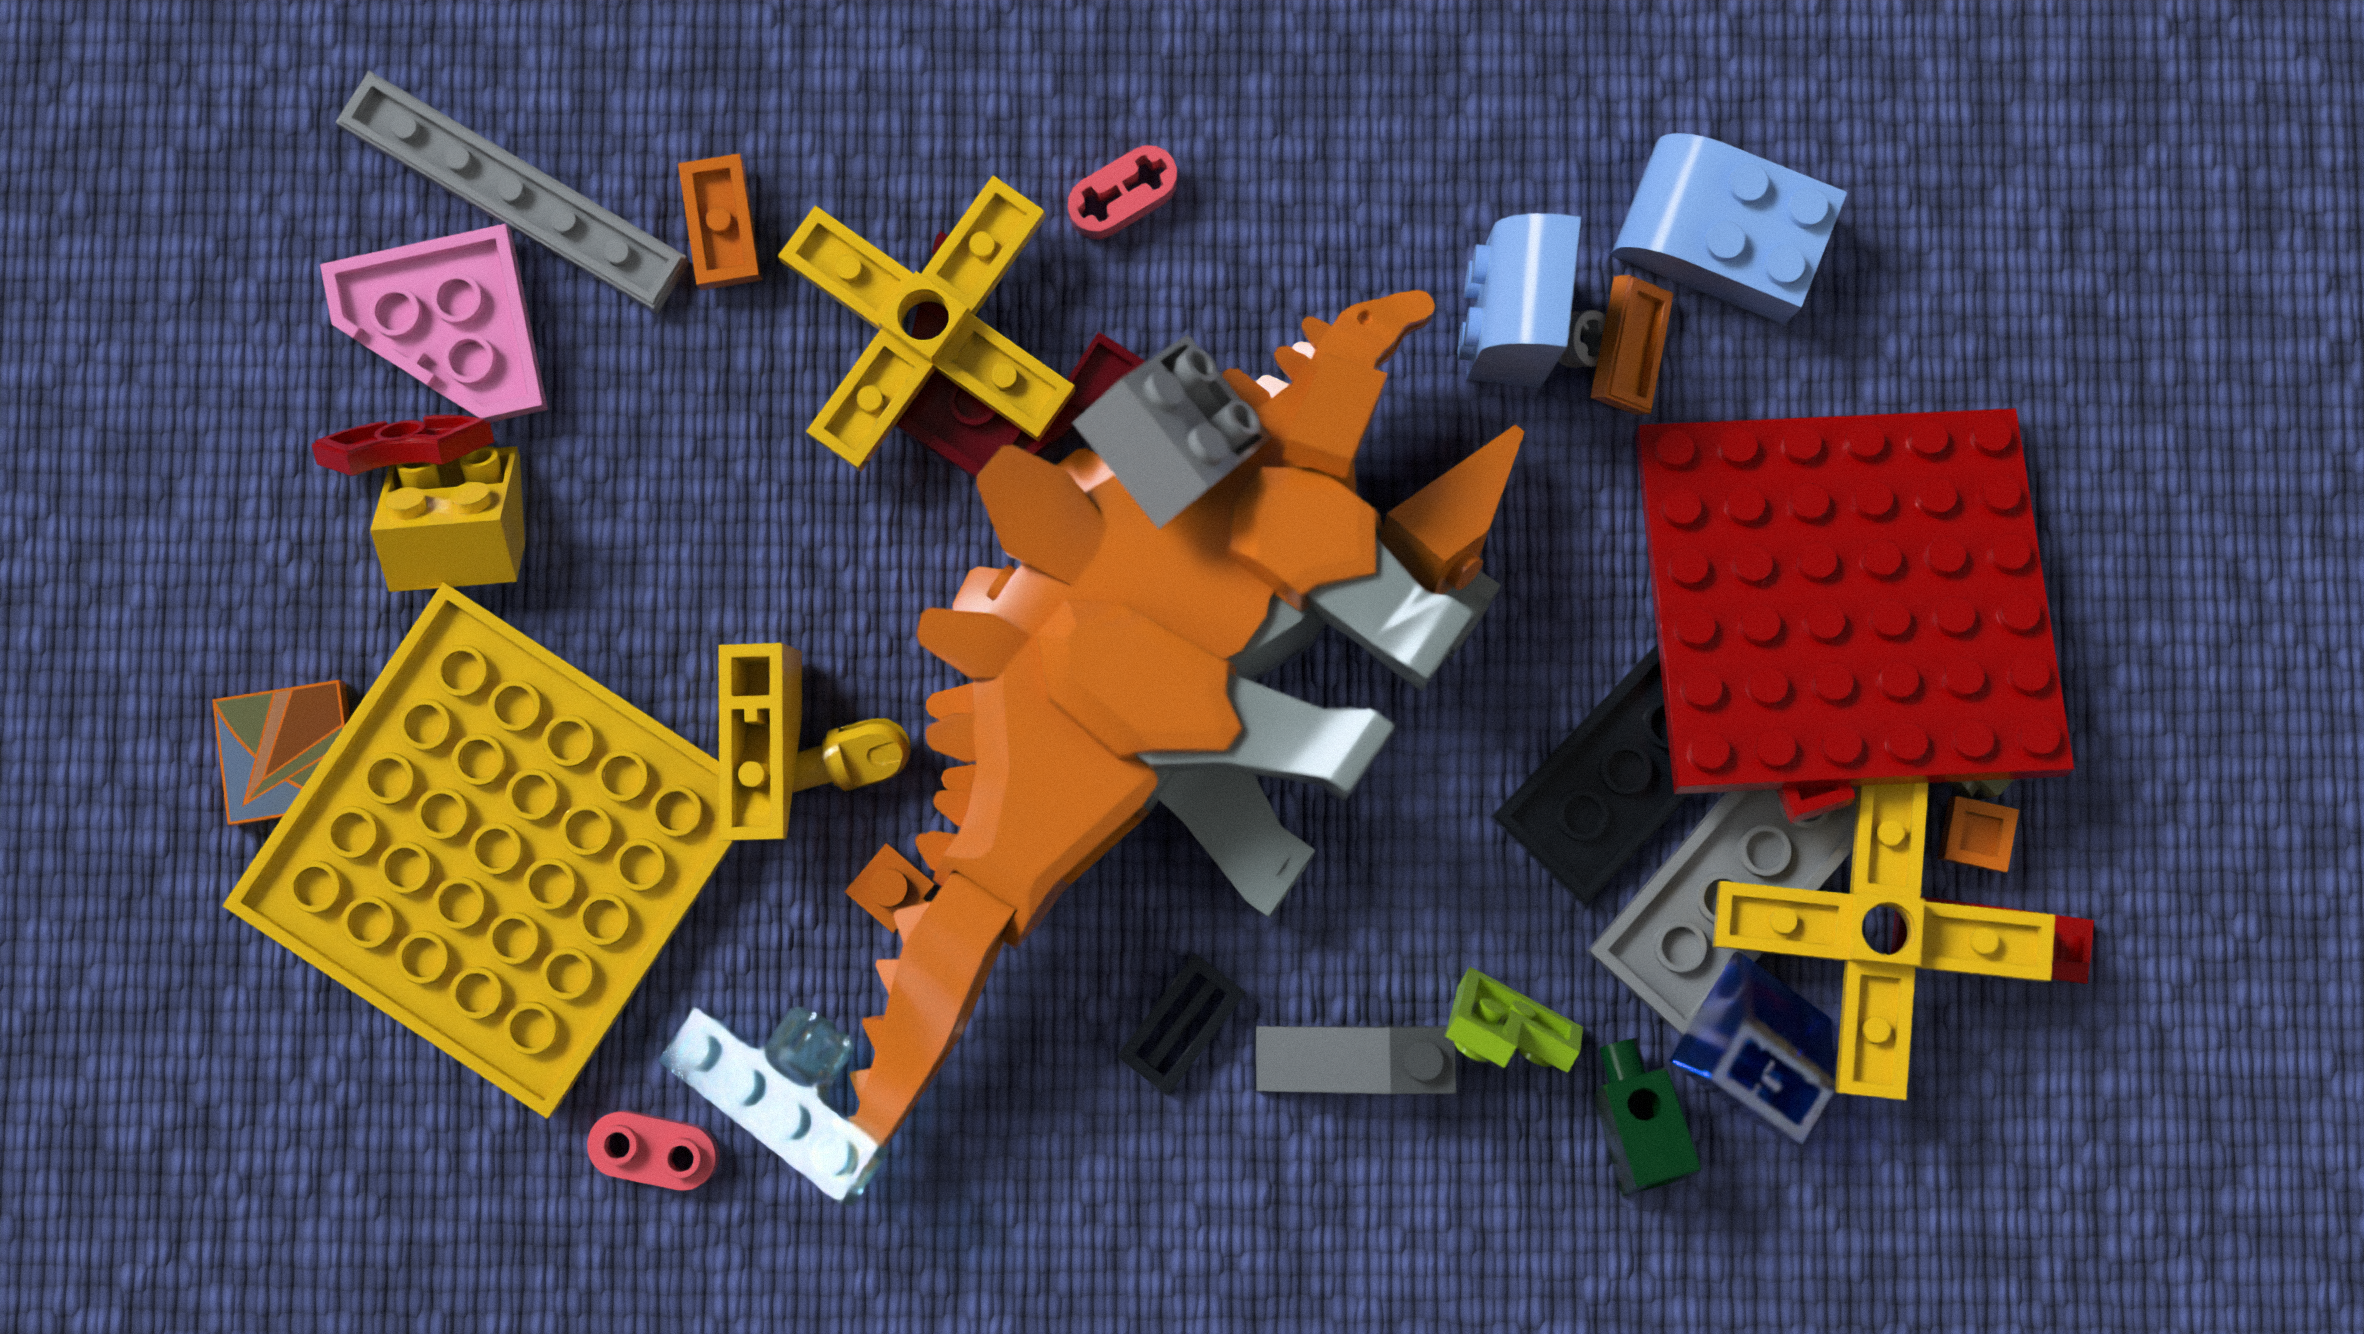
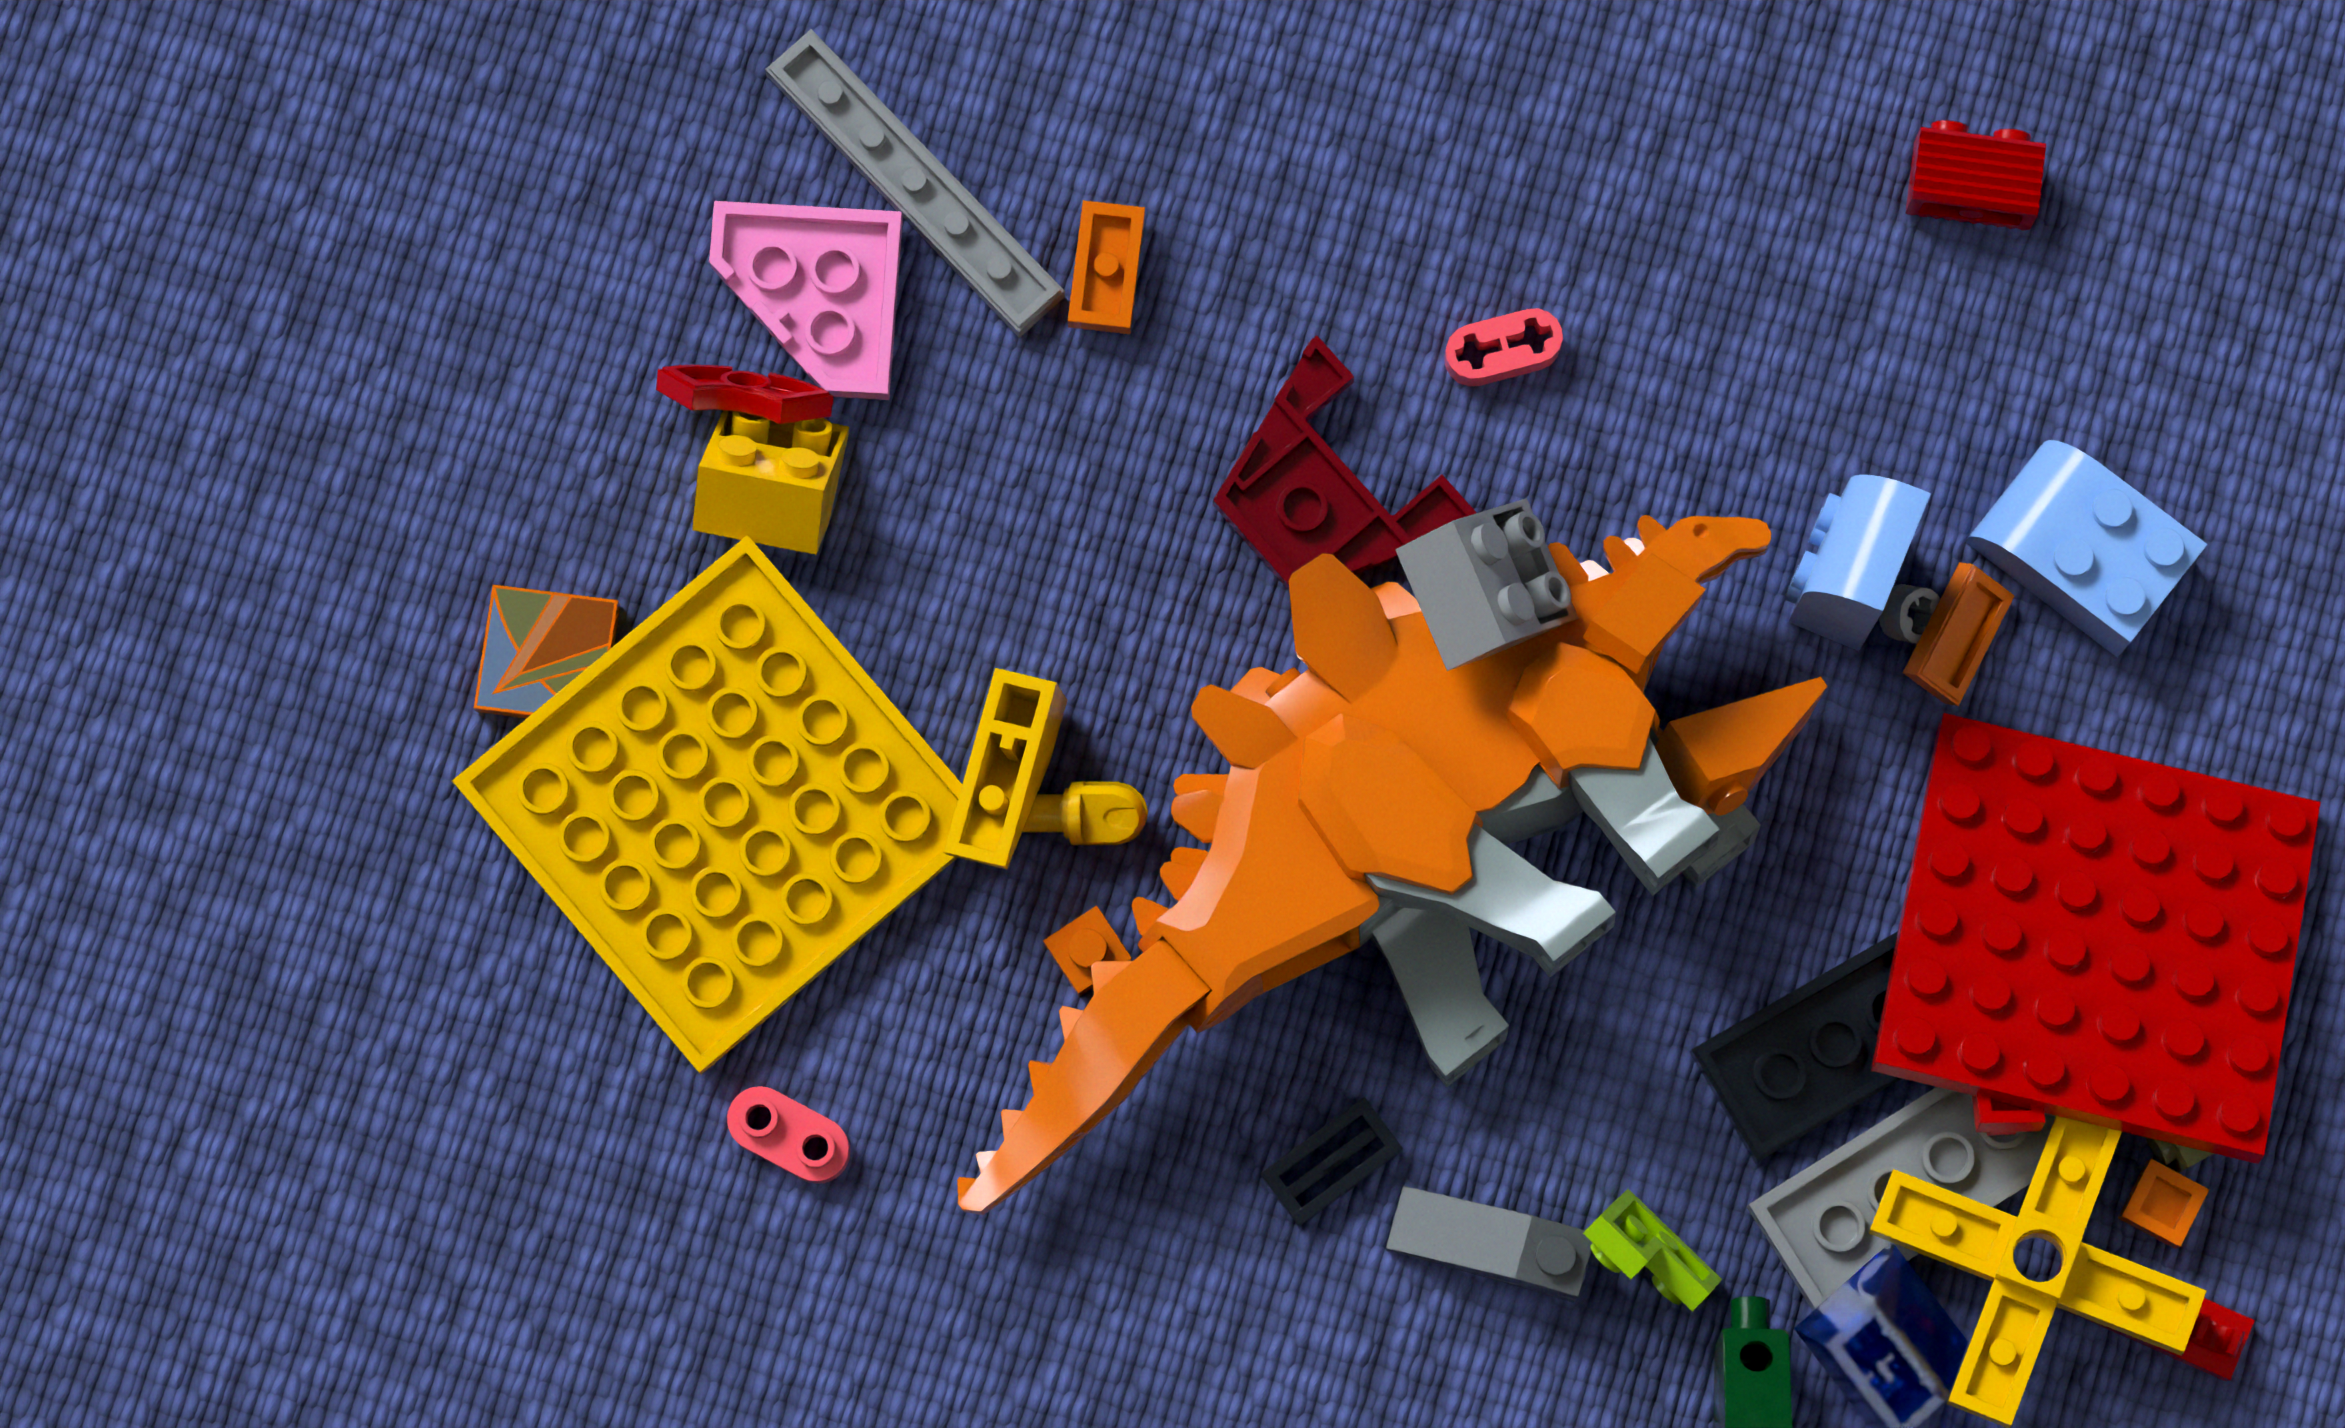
camera: 20 degrees right, 5 degrees down
(782, 1094) = (932, 1109): clear light blue plate -> none
(967, 349) = (1308, 458): yellow piece -> none

